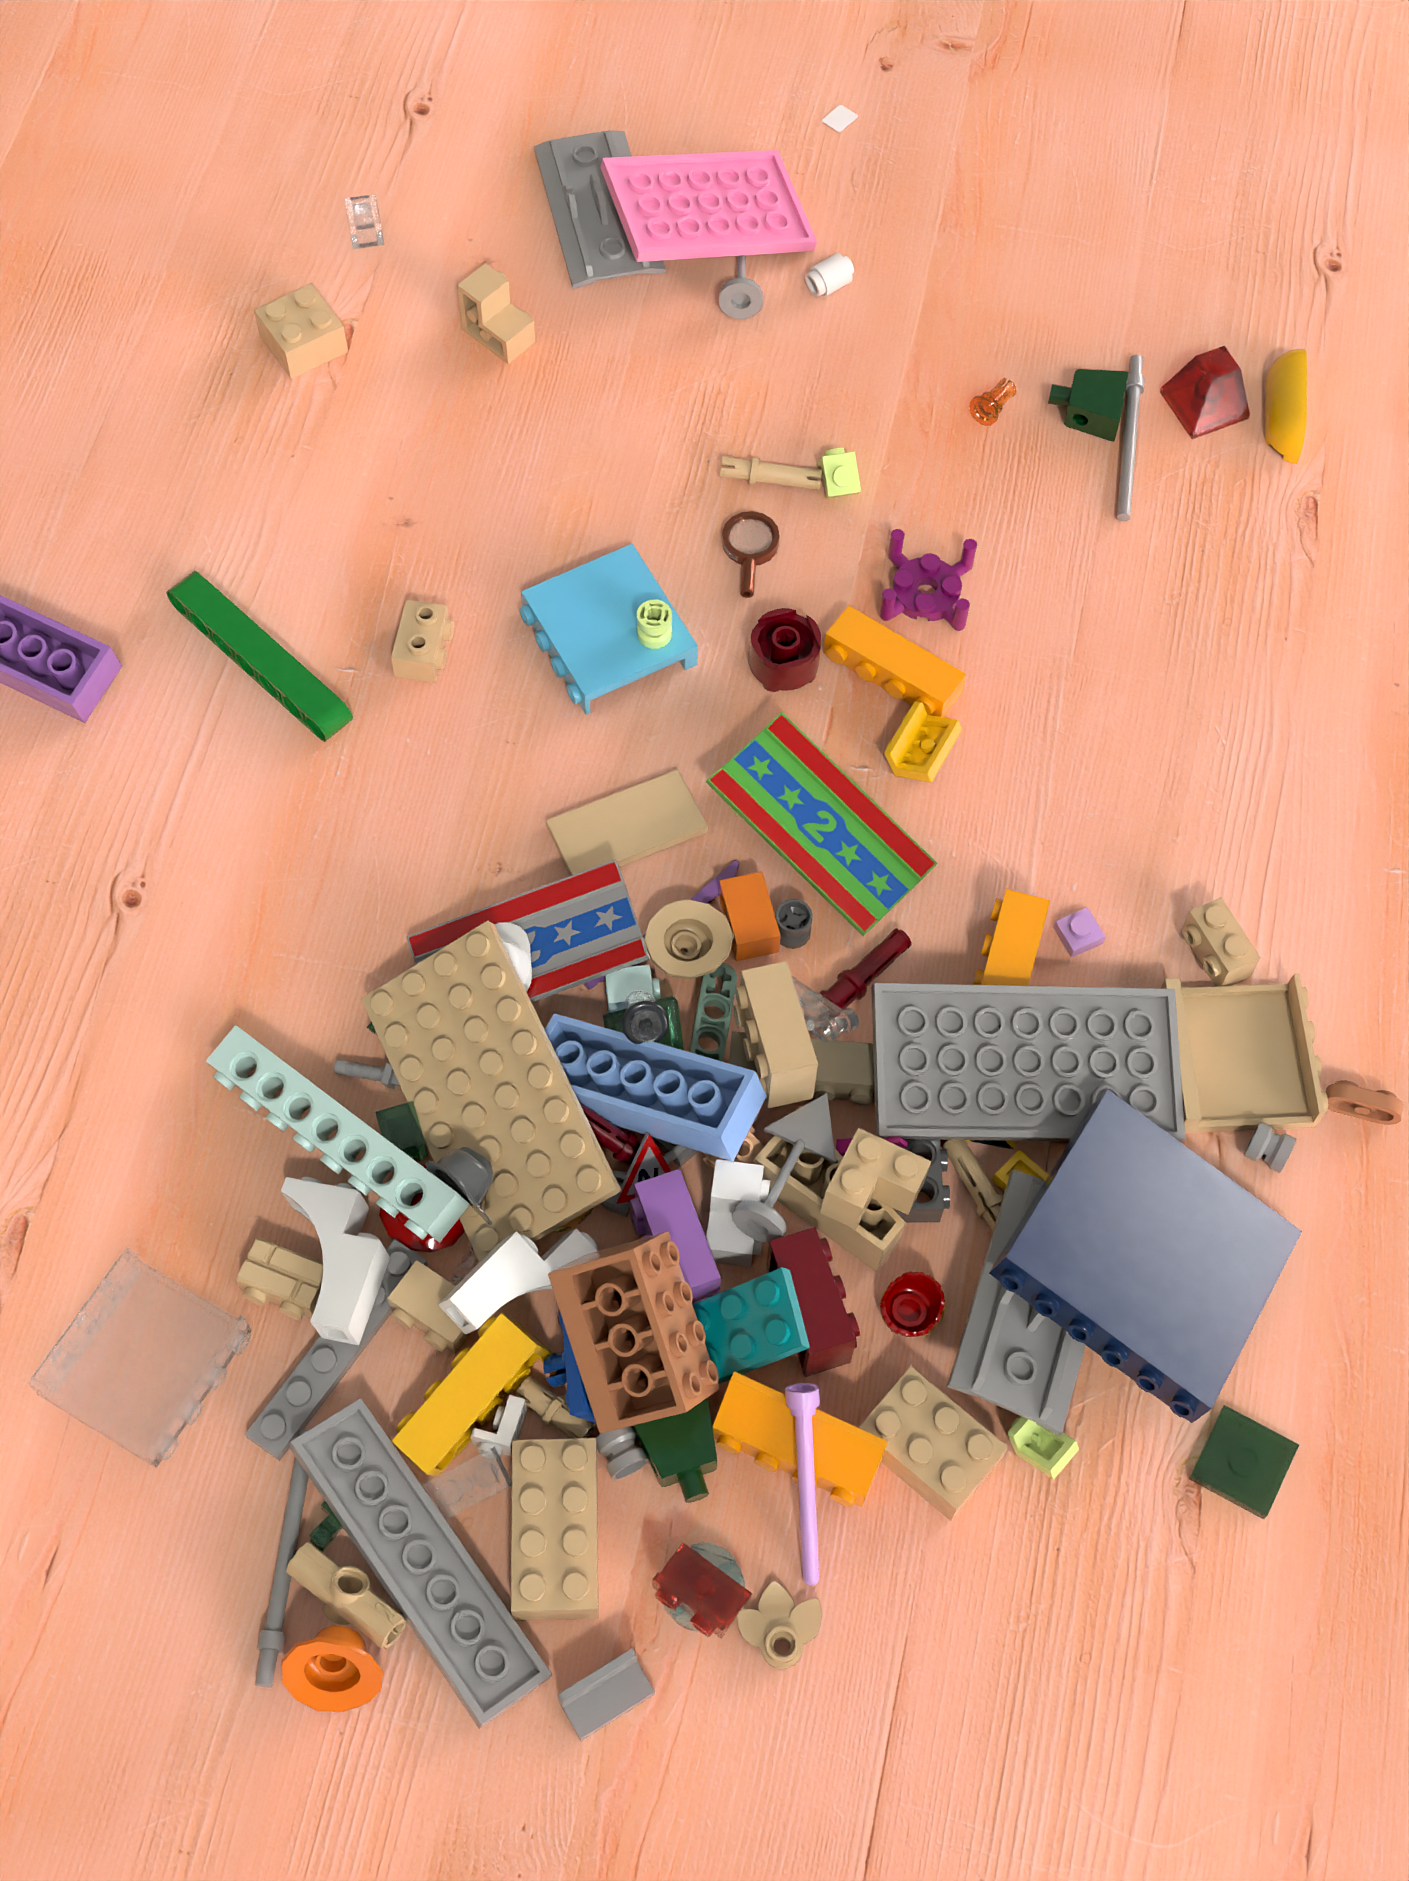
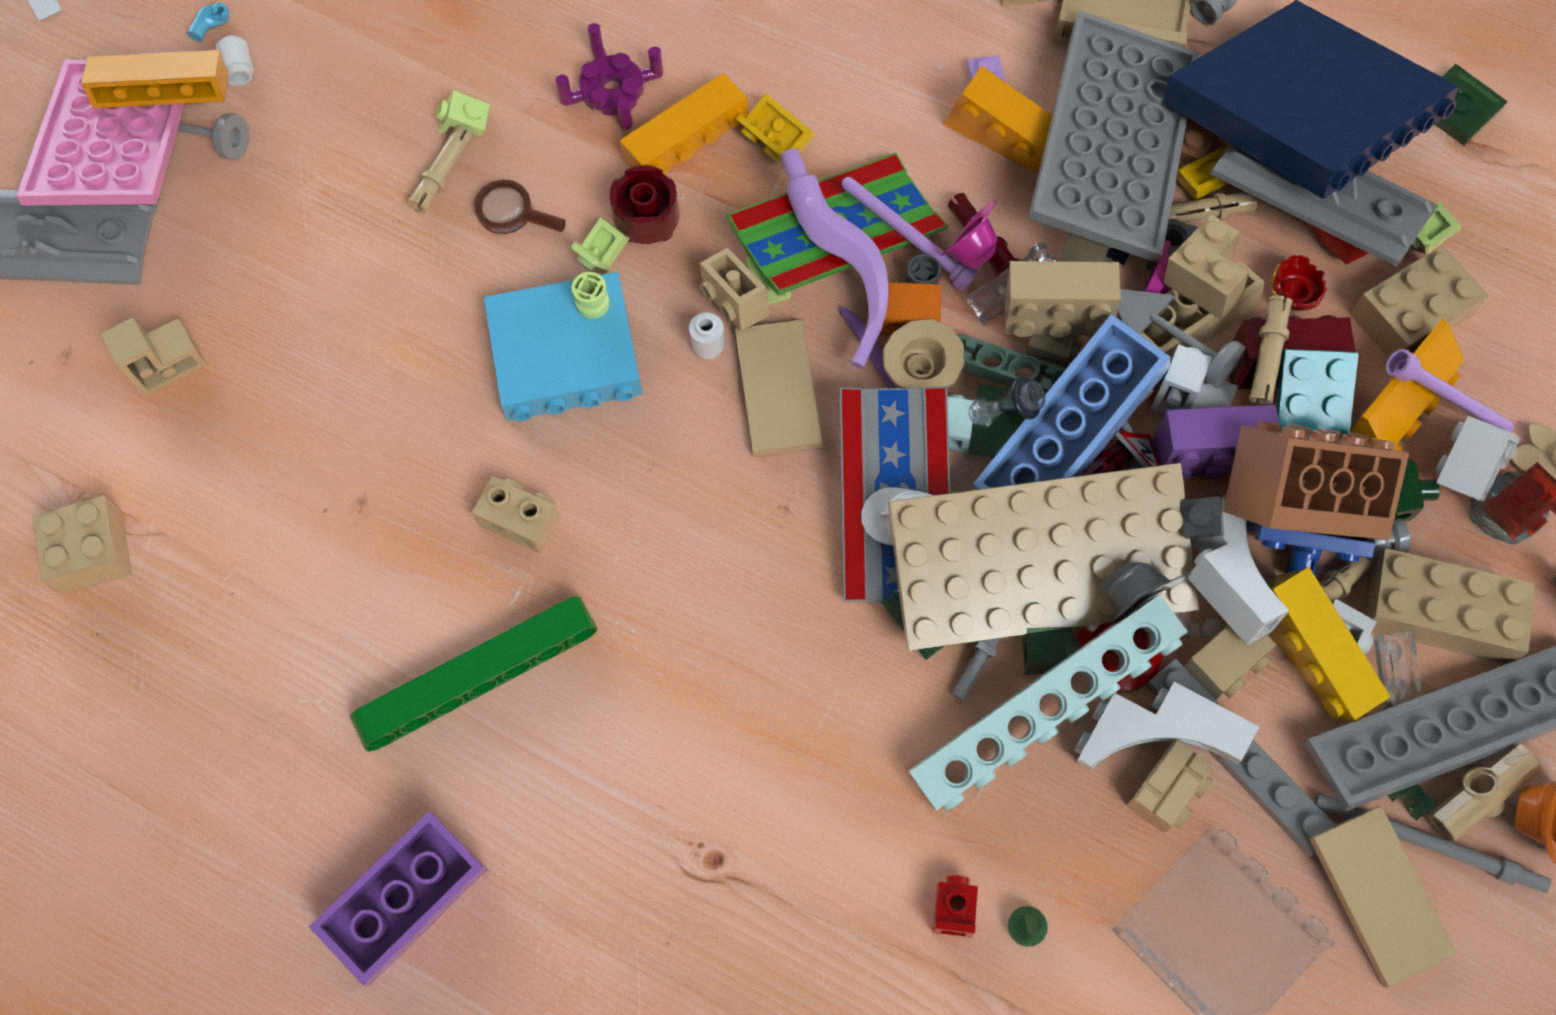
camera: 70 degrees left, 5 degrees up
(118, 1178) = (1027, 926): none -> clear green plate
(124, 1118) = (950, 921): none -> red brick
(213, 1508) = (1383, 896): none -> tan tile
(565, 1230) = (1202, 517): none -> dark grey plate
(655, 743) = (707, 335): none -> white brick
(710, 749) = (734, 289): none -> tan brick
(727, 629) = (601, 246): none -> yellowish green bracket
(743, 1522) = (1476, 457): none -> white brick
(770, 217) = (155, 79): none -> light orange brick
(779, 1255) = (1273, 336): none -> tan pin
(792, 823) = (841, 239): none -> lavender animal
(810, 958) = (958, 273): none -> lavender piece
(836, 955) = (976, 241): none -> dark pink piece
(870, 239) = (207, 18): none -> medium azure arm

